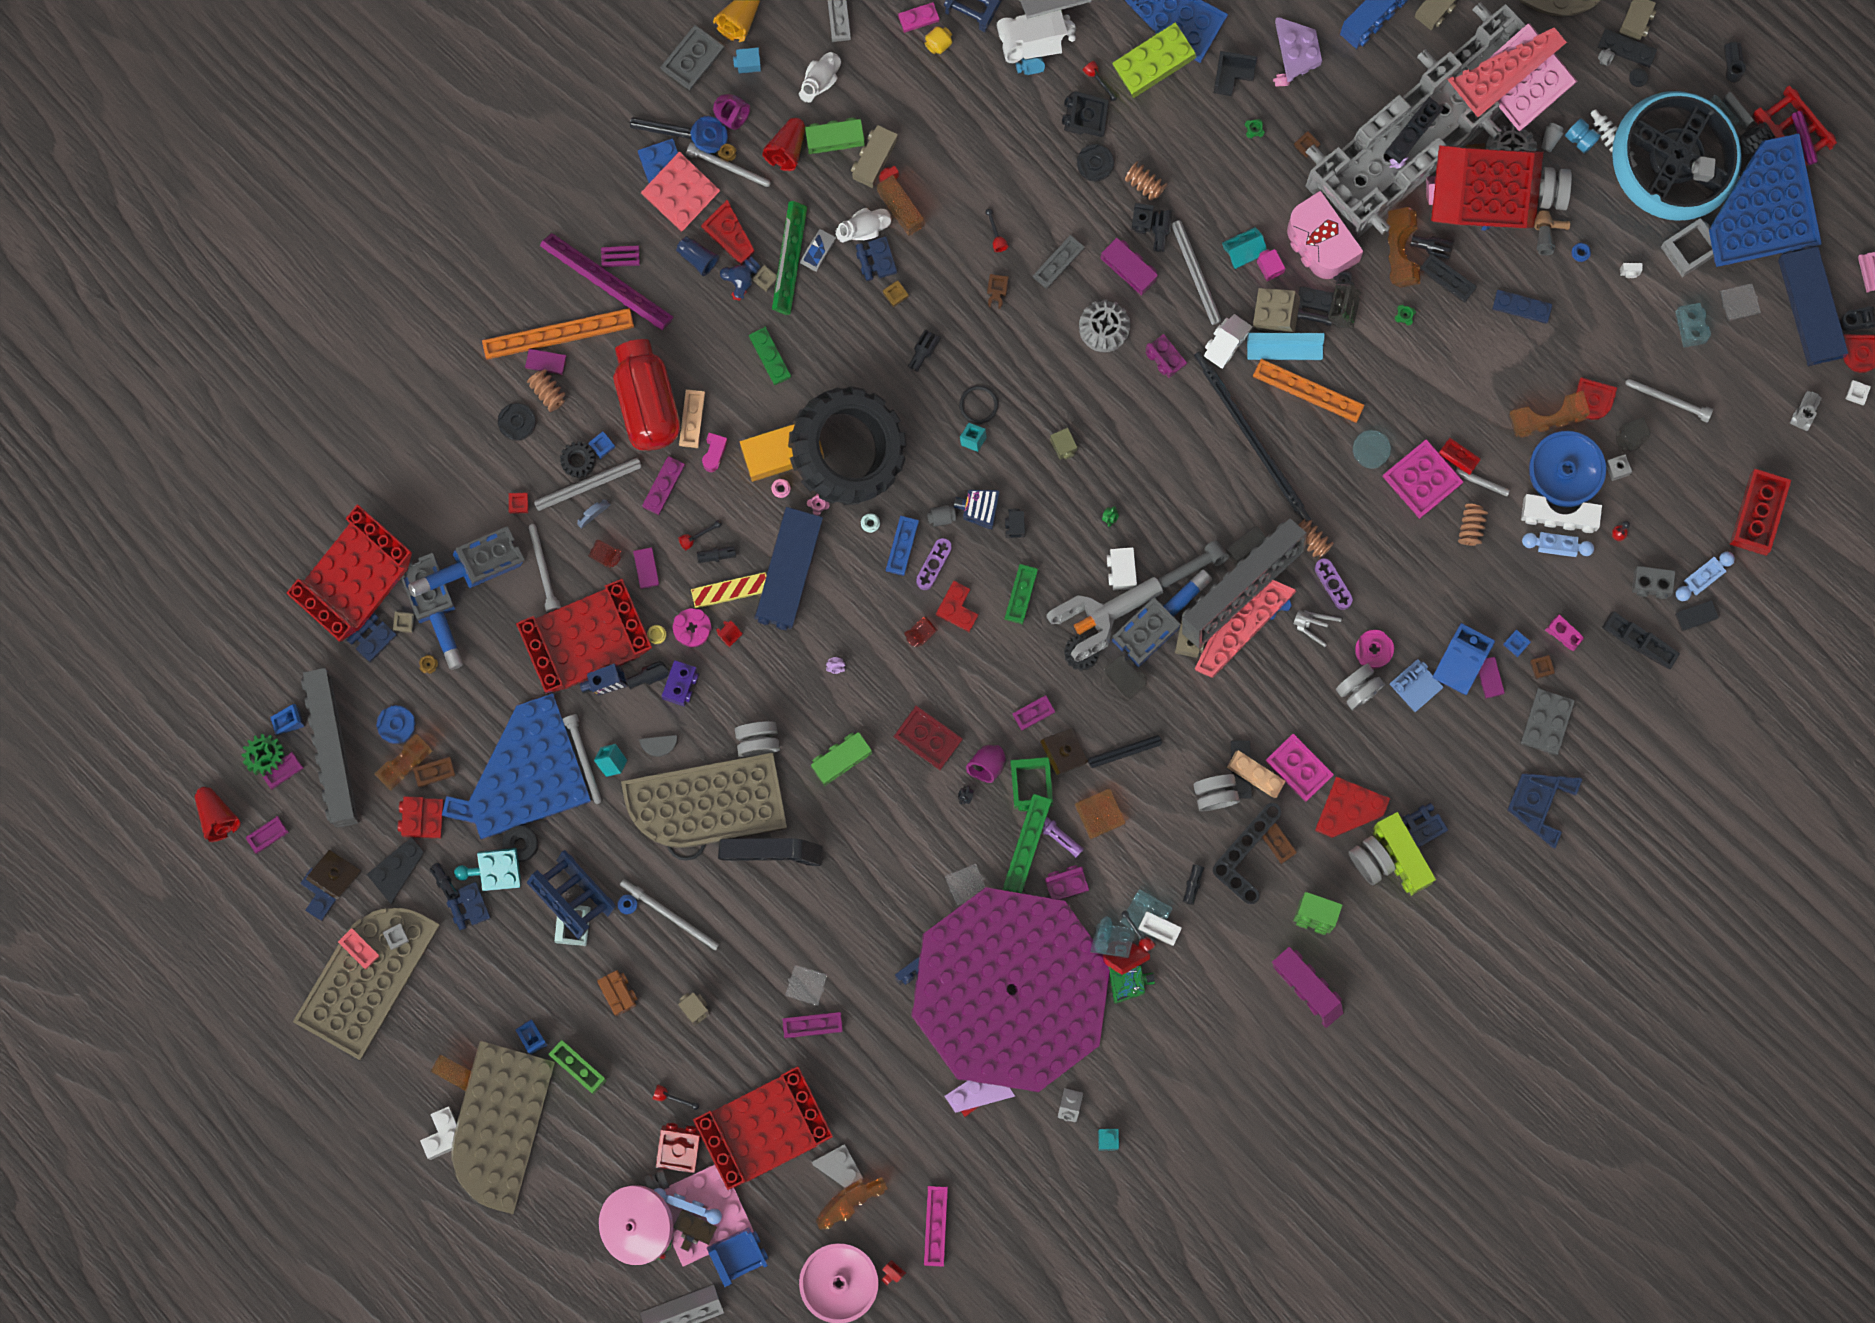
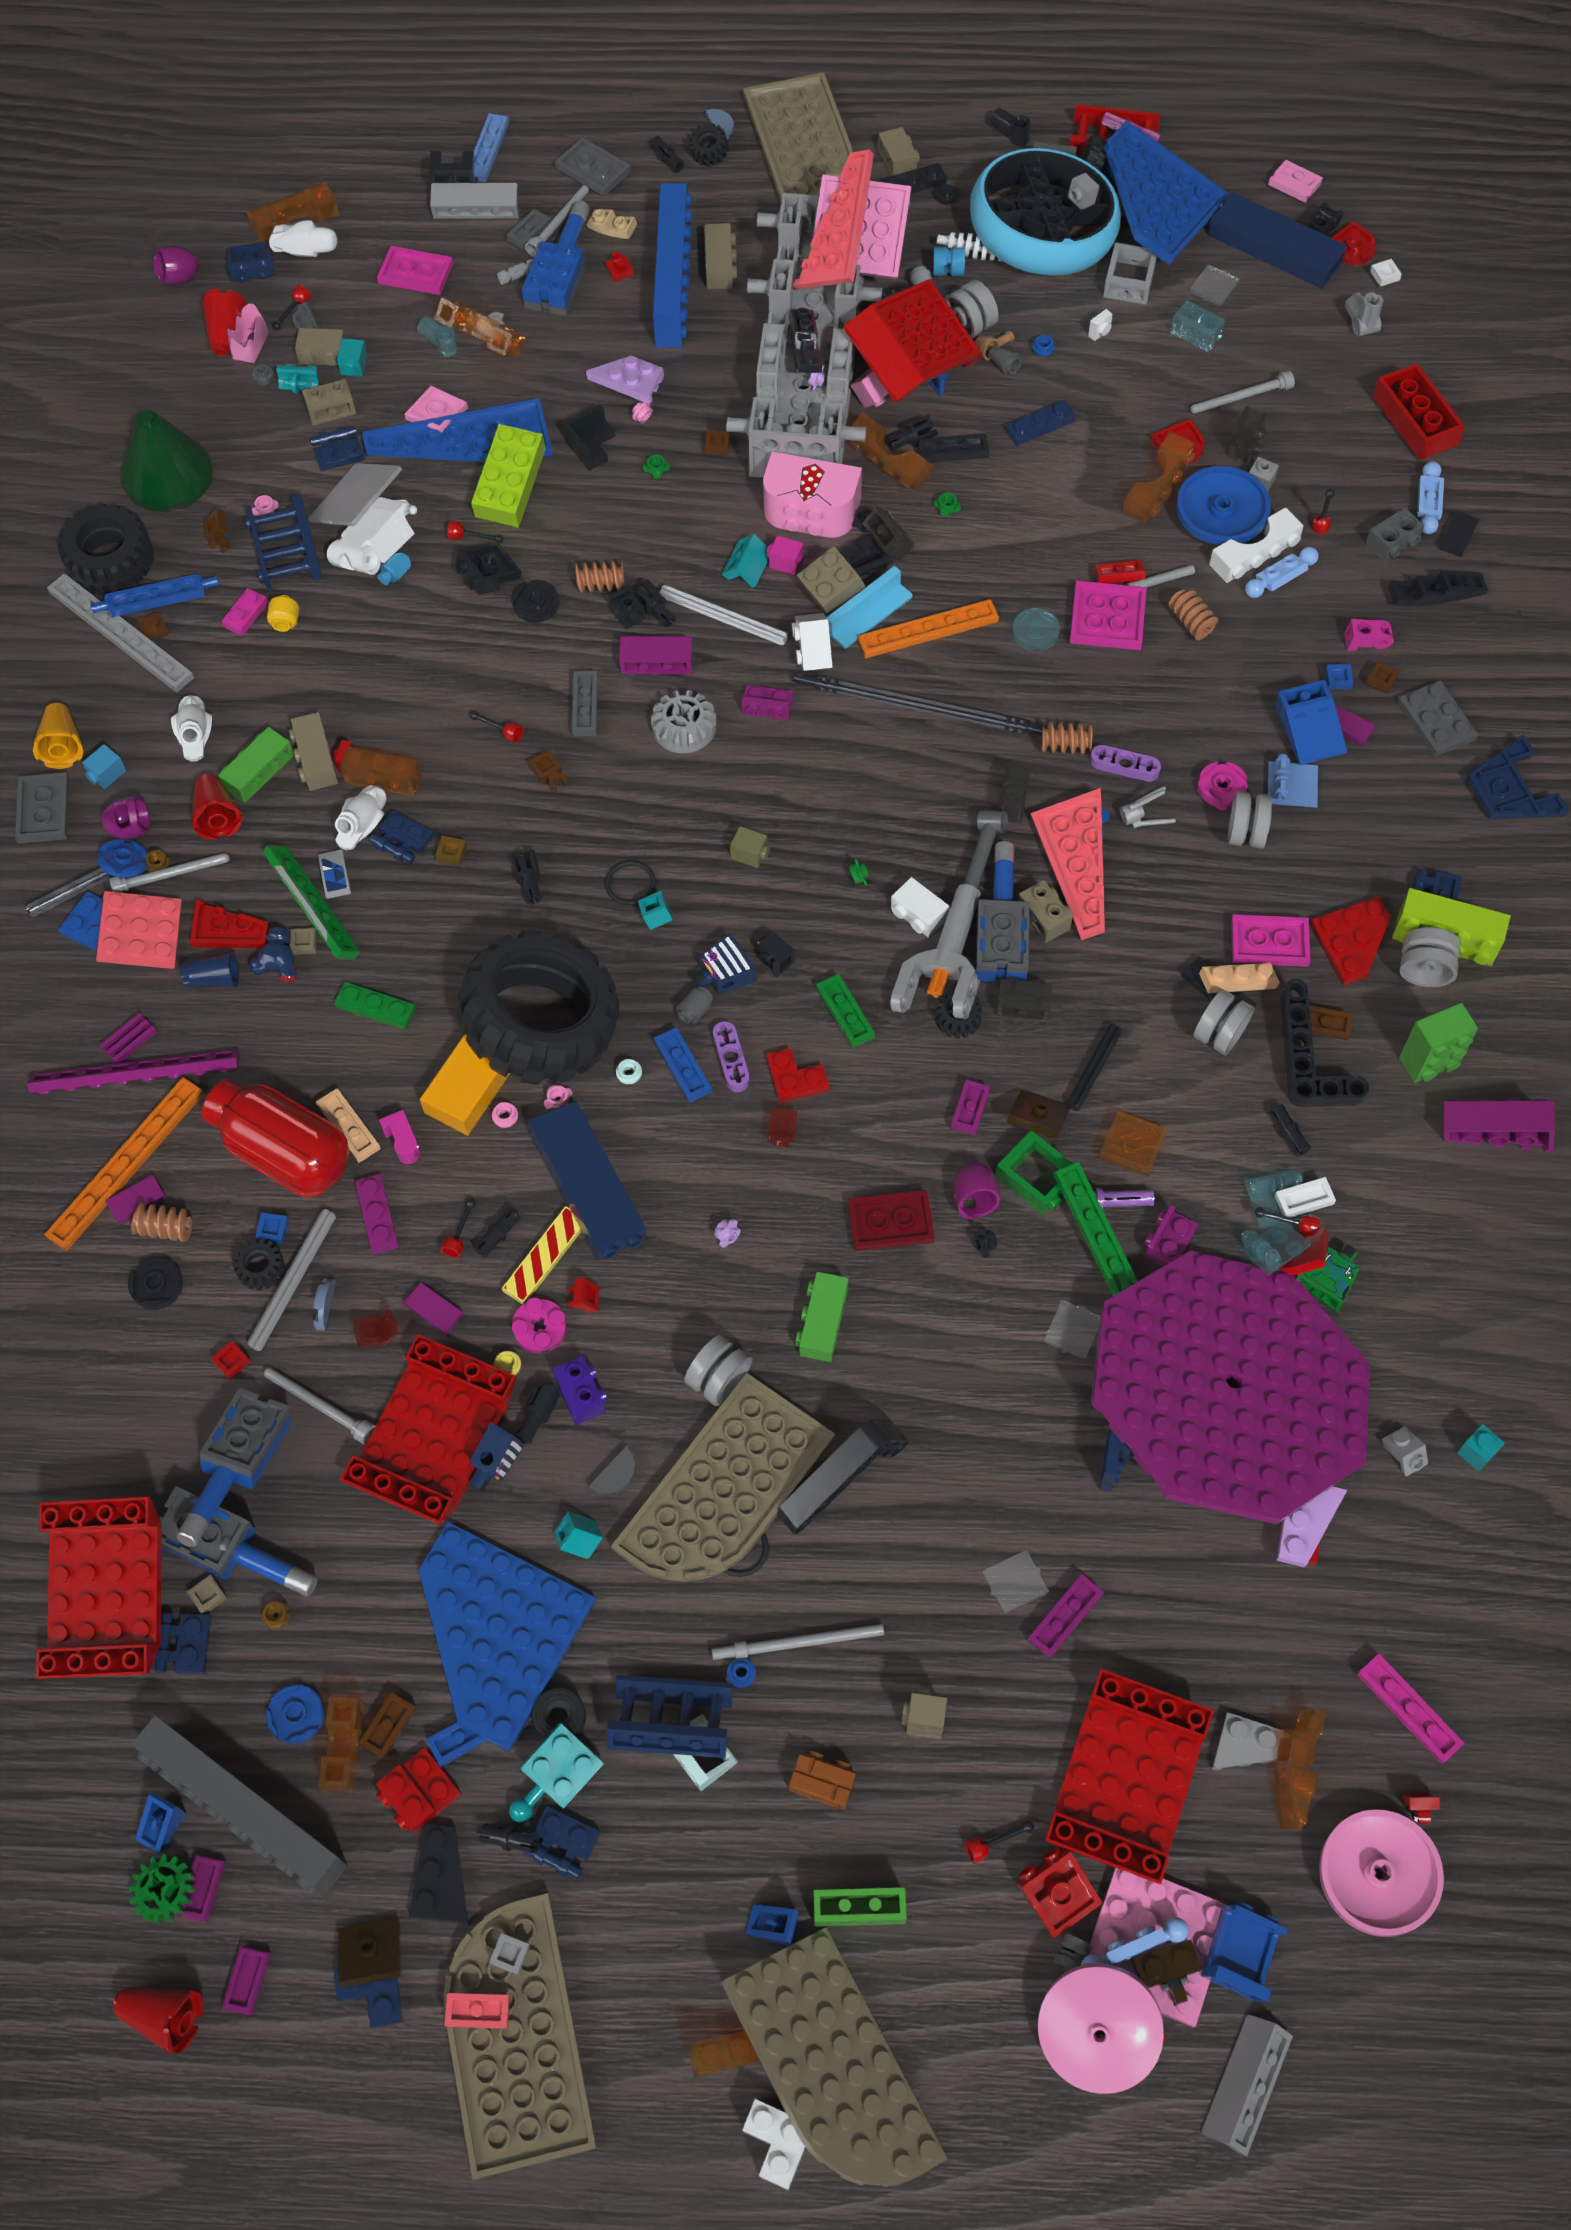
camera: 40 degrees left, 15 degrees down
(571, 723) = (499, 1535): light grey piece -> none
(1243, 582) = (1050, 815): dark grey brick -> none

